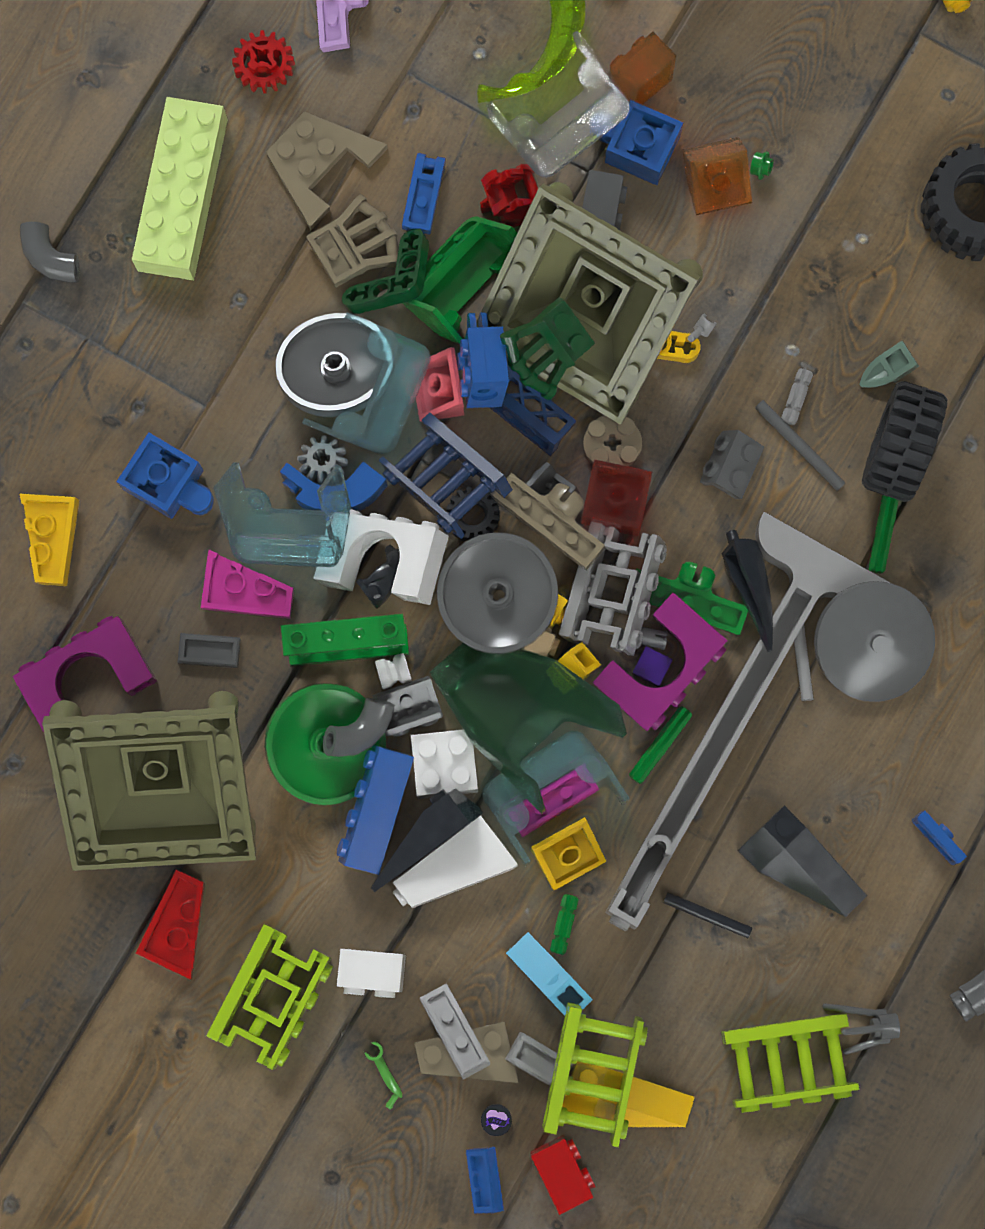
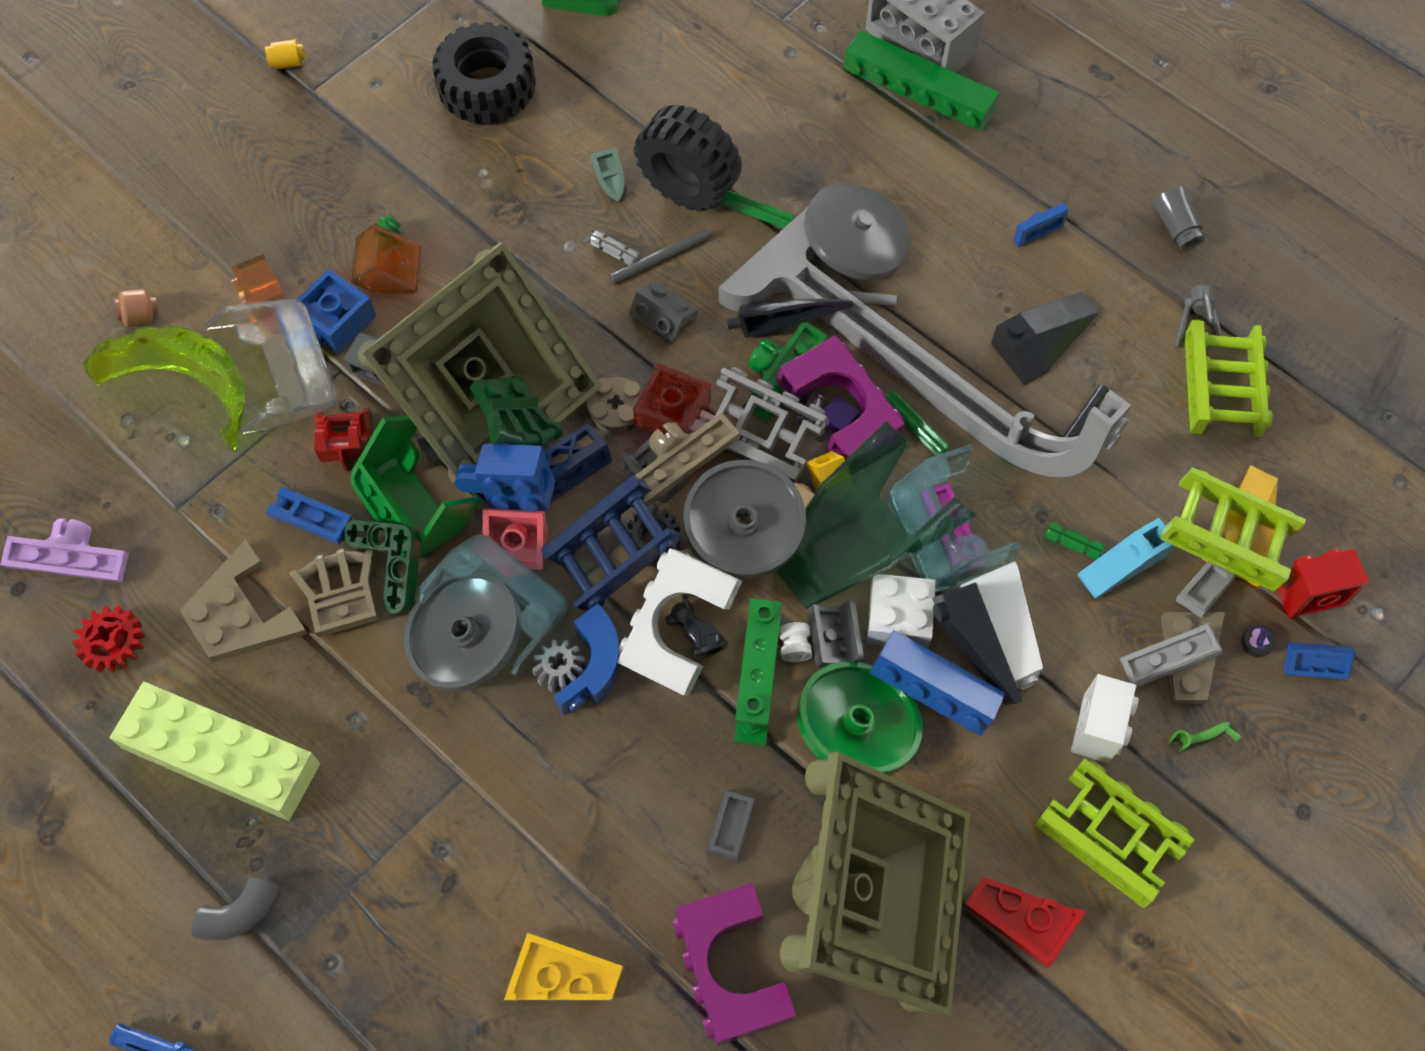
camera: 80 degrees left, 15 degrees down
(165, 479) = (535, 827): blue brick -> none
(243, 591) = (675, 777): dark pink wing -> none
(284, 535) = (630, 710): clear light blue windscreen -> none
(362, 733) = (858, 675): dark grey cylinder -> none
(568, 854) = (1005, 519): yellow slope -> none

